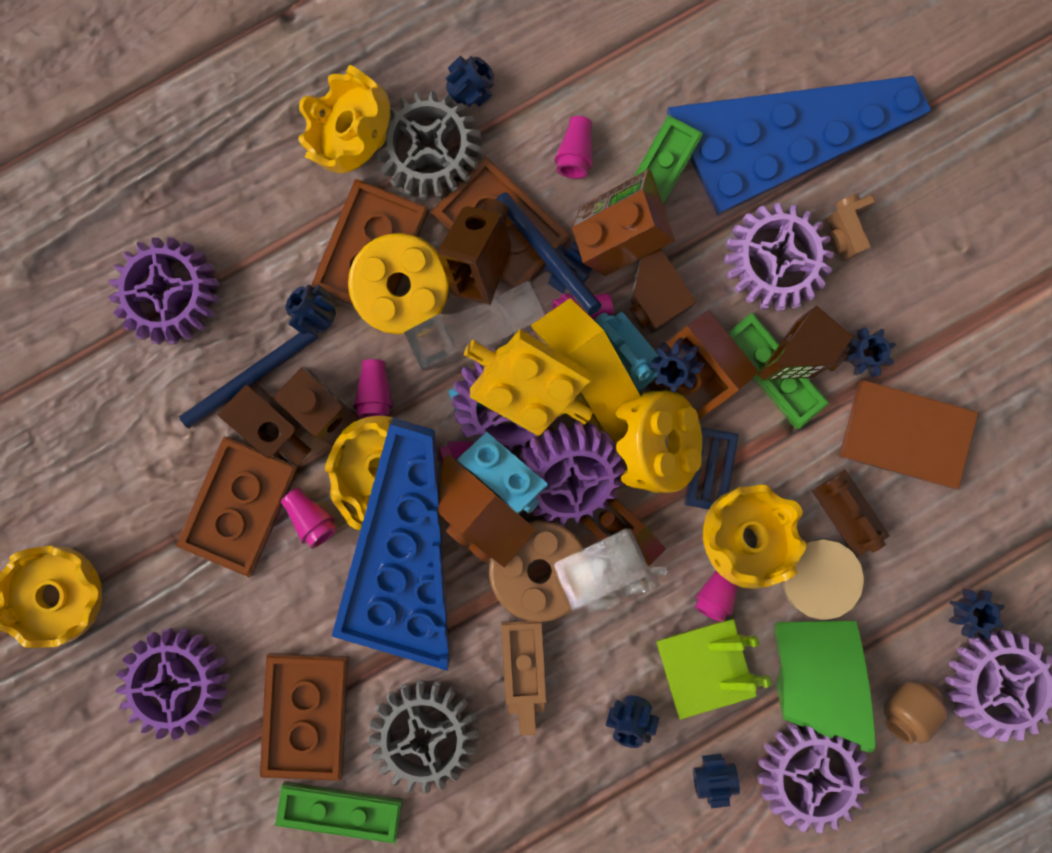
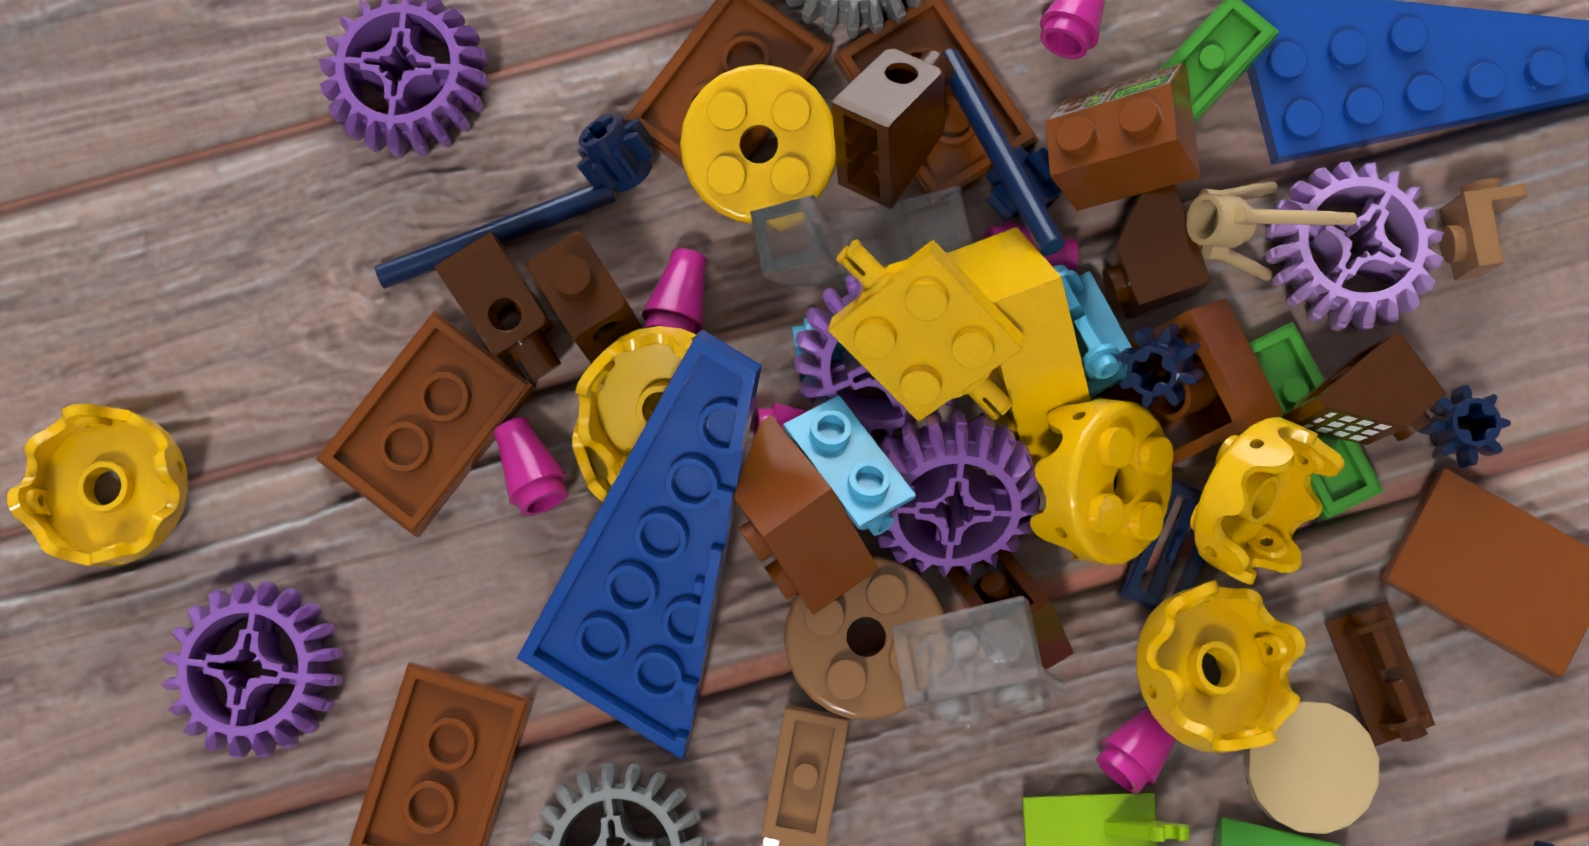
camera: 20 degrees right, 5 degrees down
(695, 263) = (1225, 221): none -> tan plant
(755, 426) = (1261, 497): none -> yellow plate

